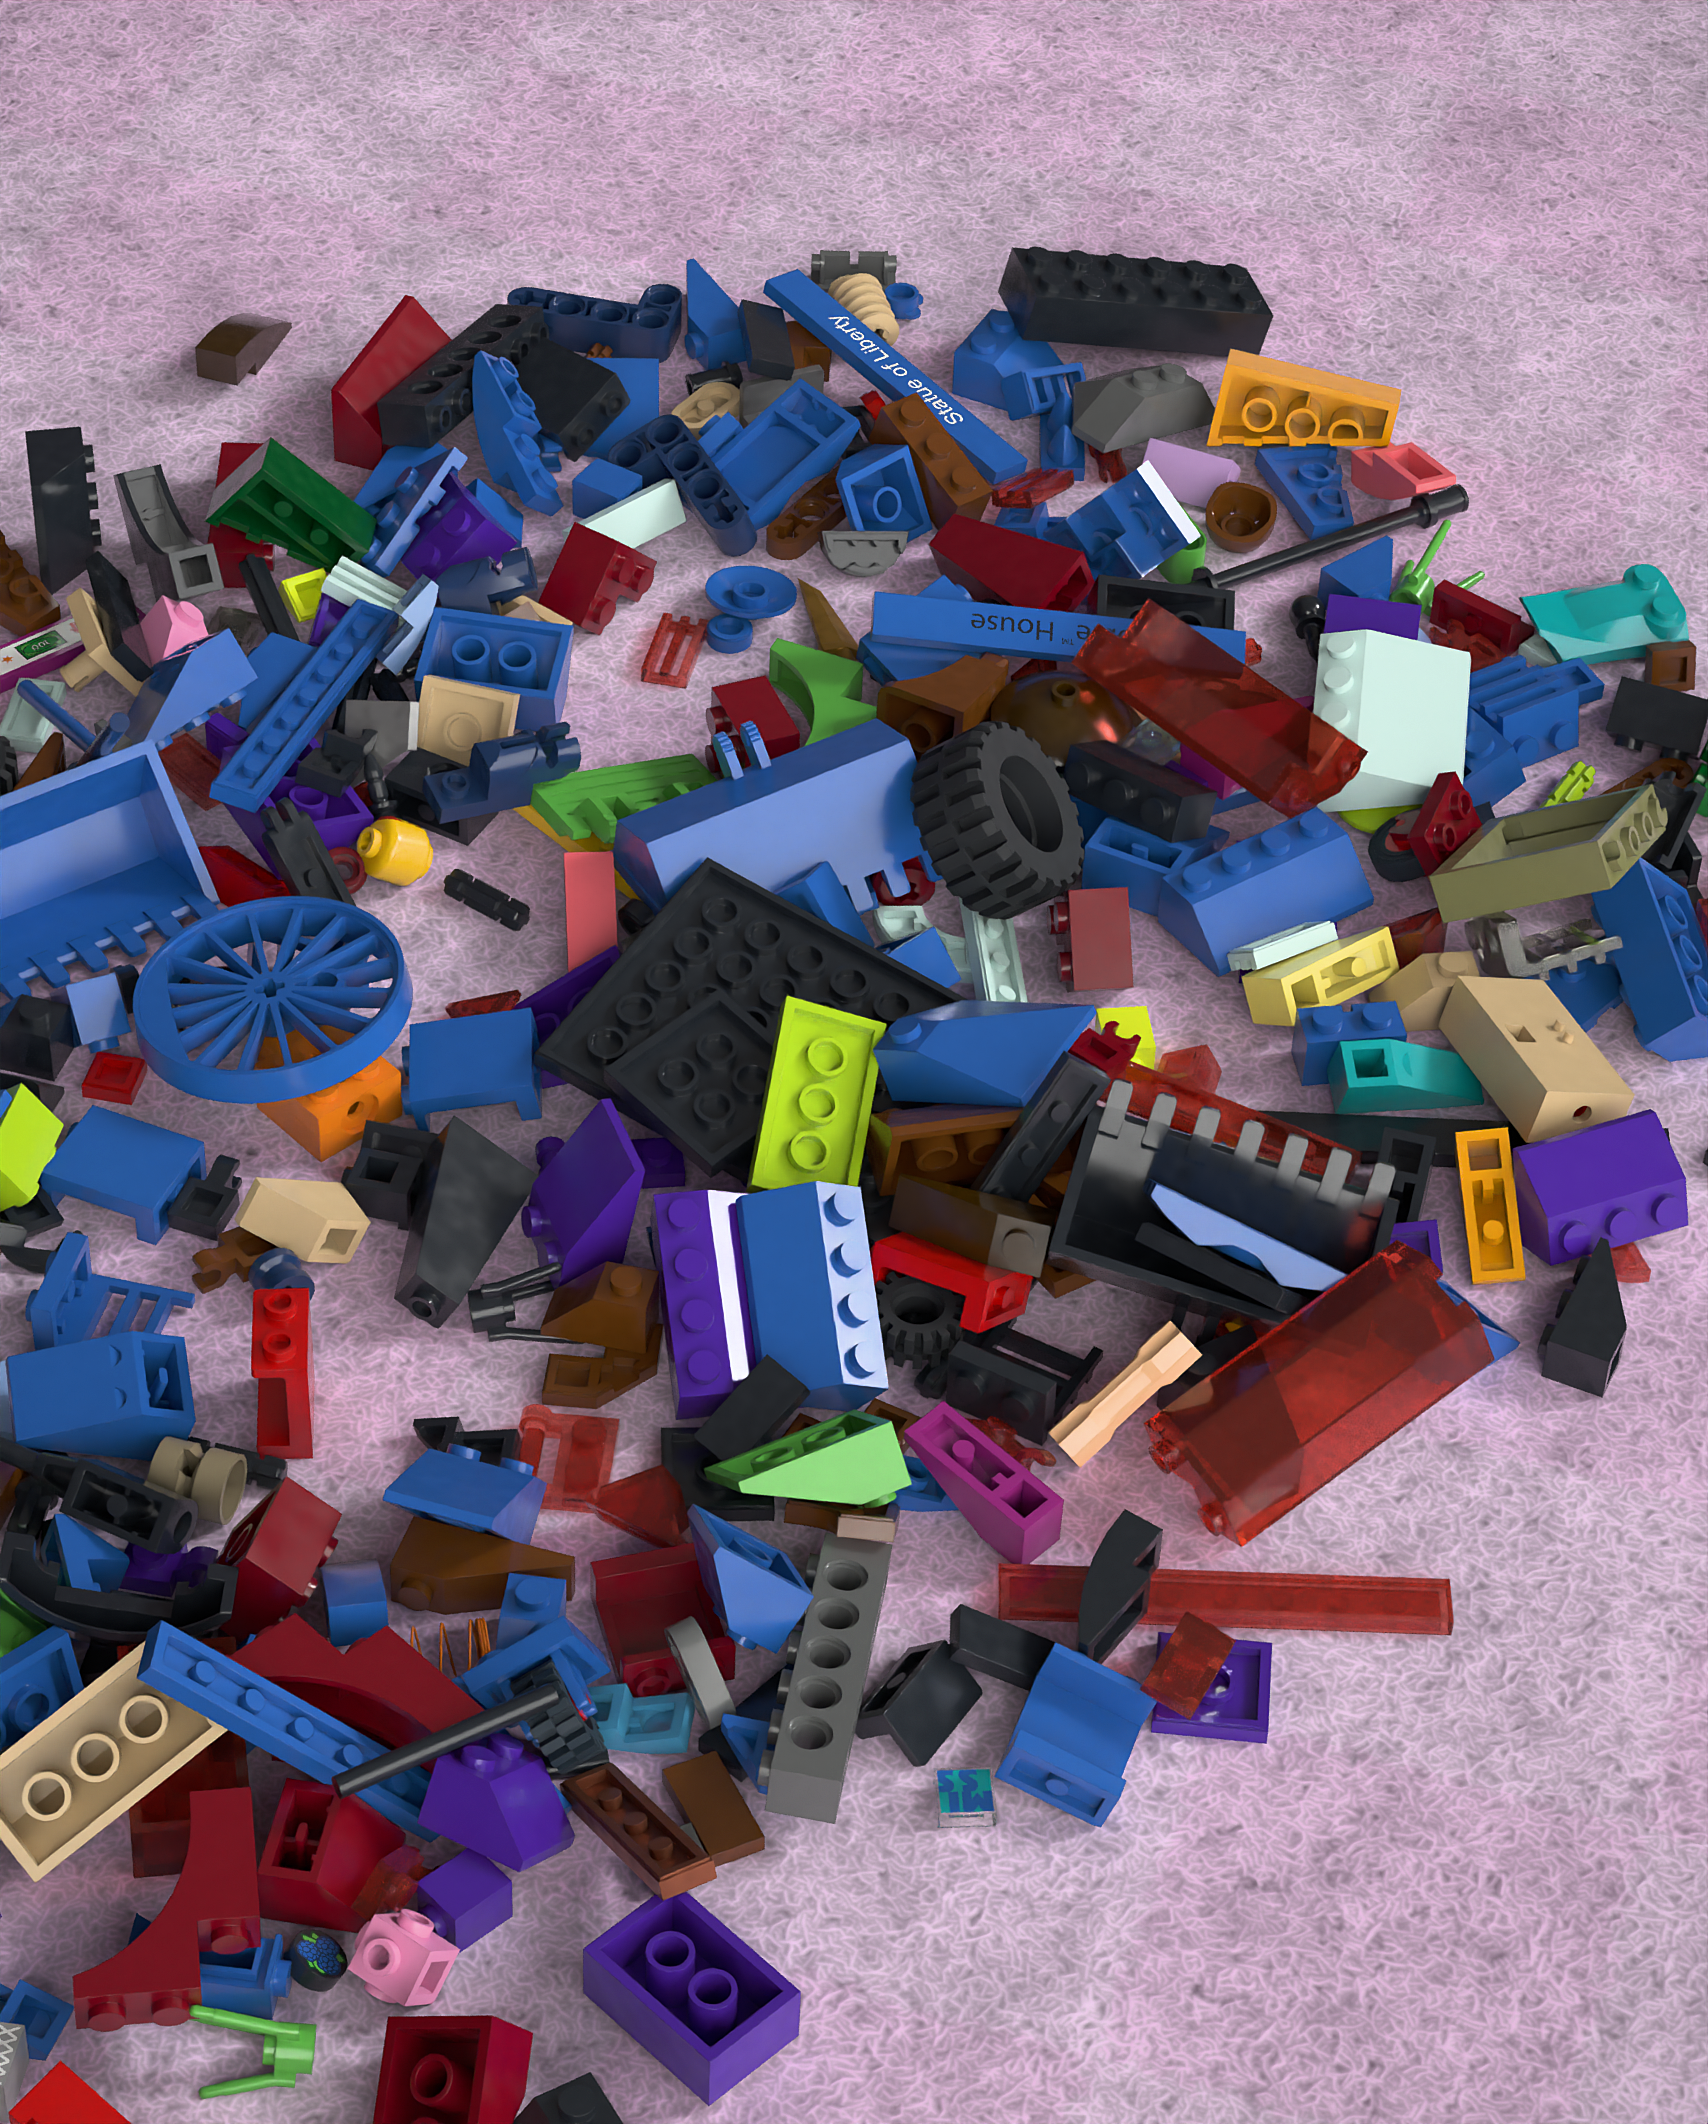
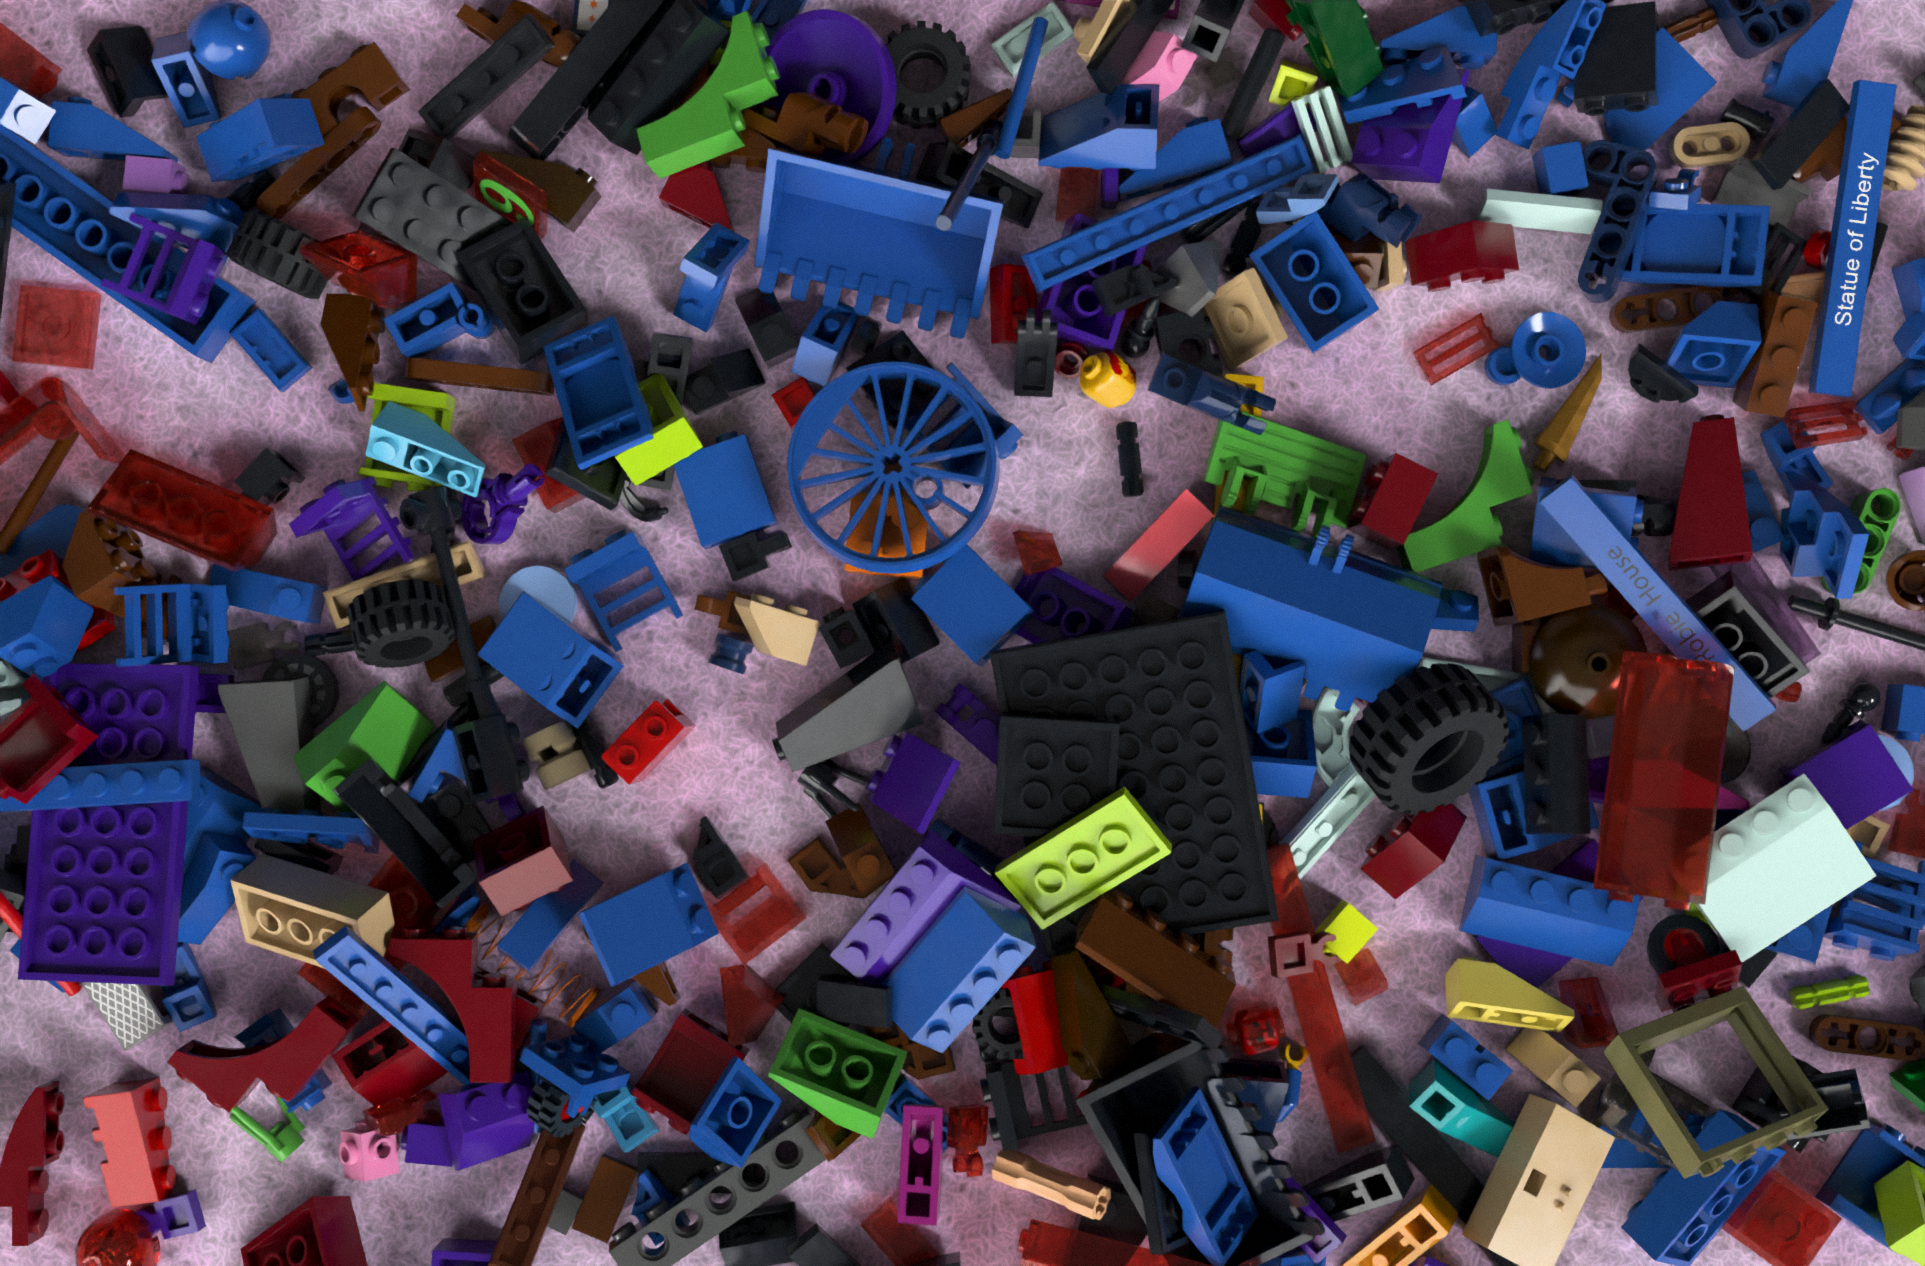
camera: 45 degrees right, 45 degrees up
(316, 1960) = (339, 1103): tile -> none
(445, 1740) = (467, 1089): black bar -> none
(699, 1671) = (657, 1139): dark grey beam -> none
(978, 1051) = (1213, 919): blue slope -> none
(1282, 945) = (1508, 964): light aqua tile -> none

